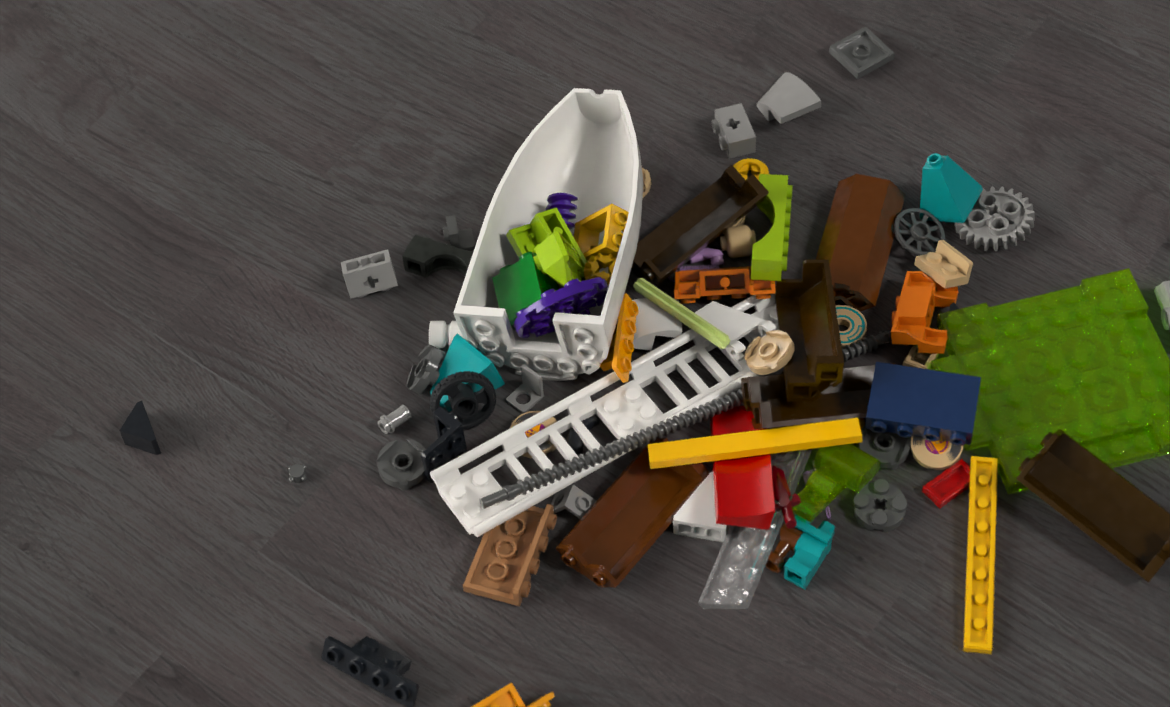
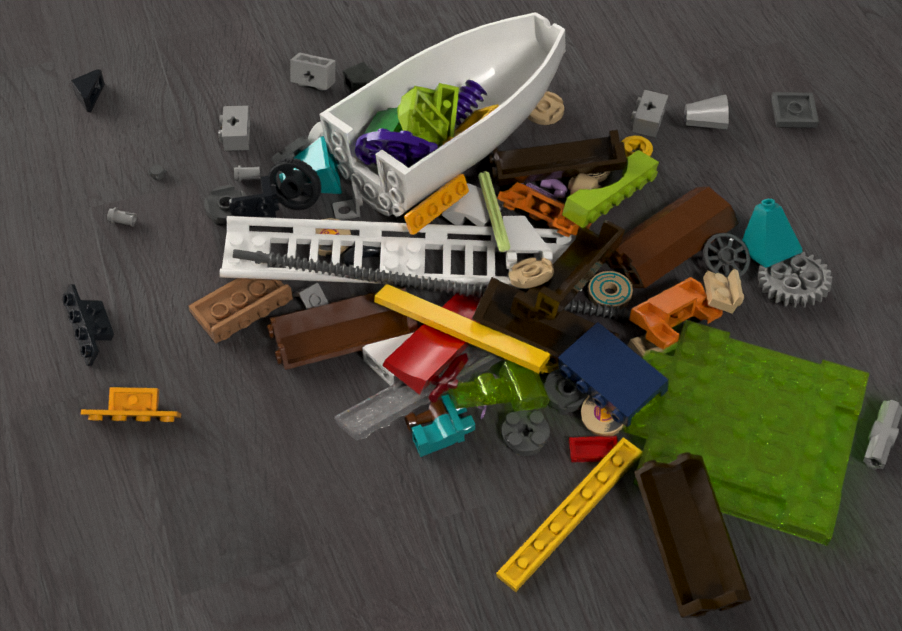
camera: 30 degrees right, 0 degrees up
(306, 540) = (122, 217): none -> light grey pin
(340, 379) = (235, 128): none -> light grey brick

